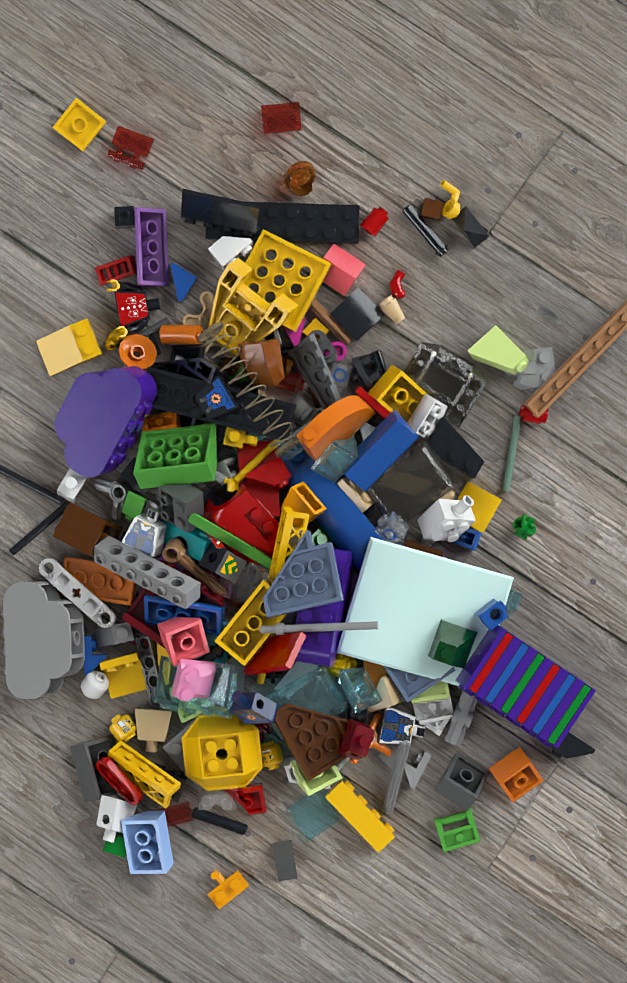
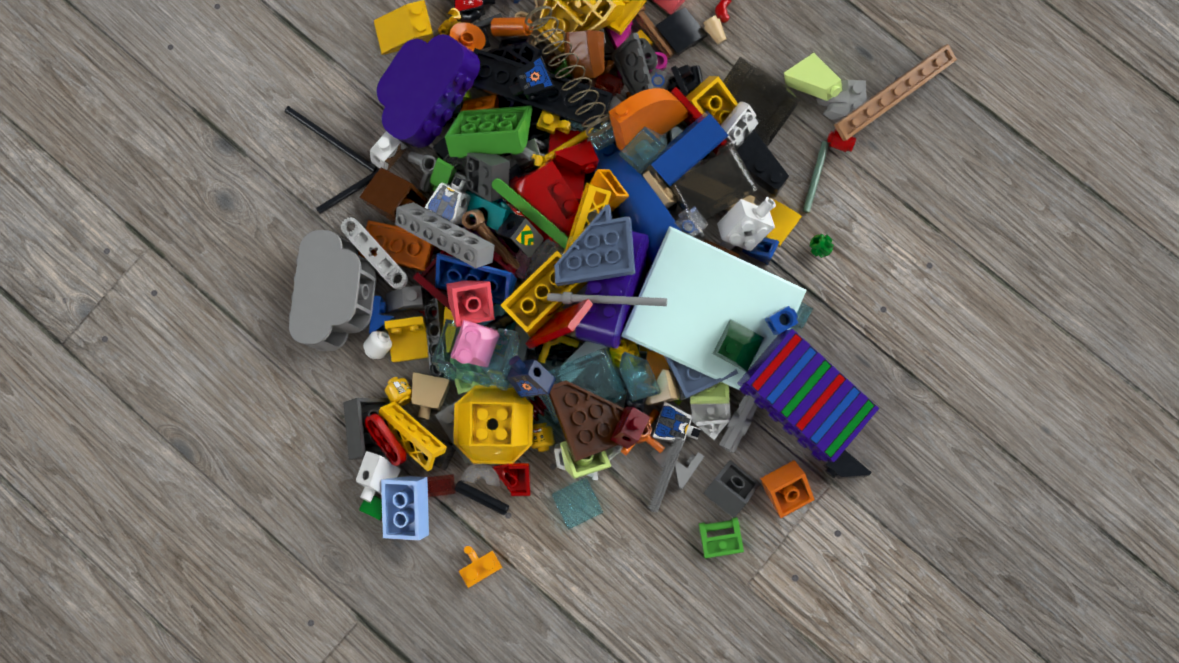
camera: 10 degrees right, 10 degrees down
(285, 860) = (542, 547): dark grey slope -> none
(360, 816) = (624, 510): yellow brick -> none

